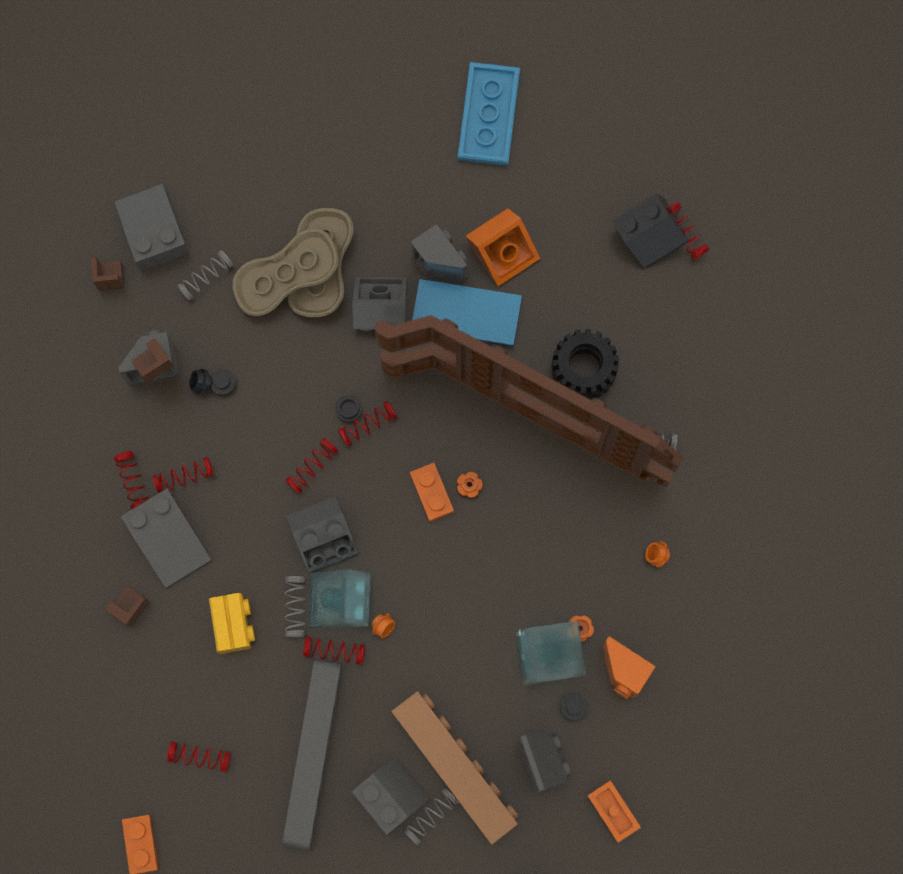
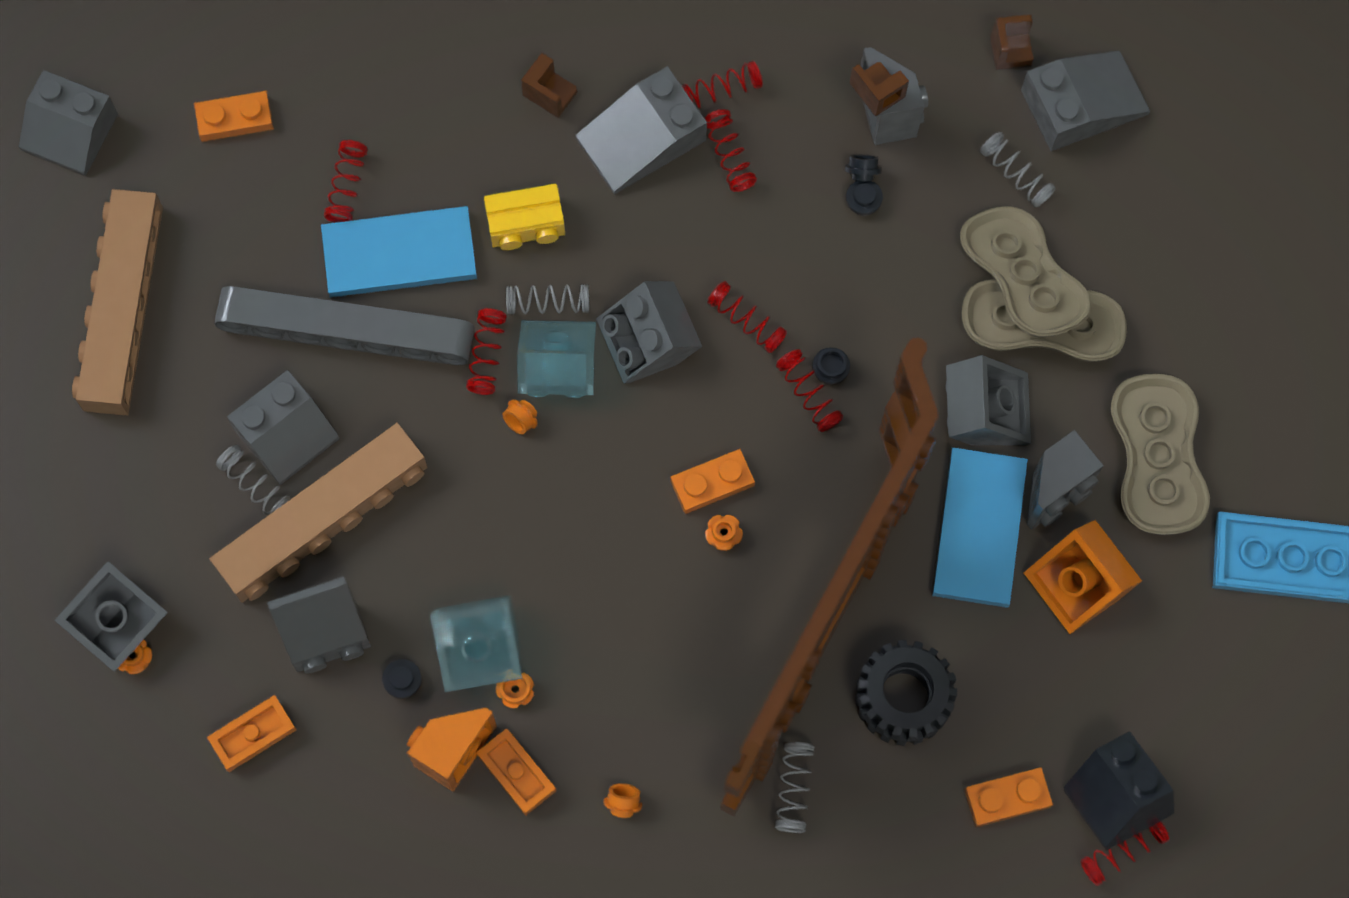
camera: 85 degrees right, 5 degrees down
(253, 716) = (398, 251): none -> dark azure tile
(397, 192) = (1161, 481): none -> dark tan plate
(639, 625) = (516, 771): none -> orange plate
(651, 303) = (1008, 797): none -> orange plate

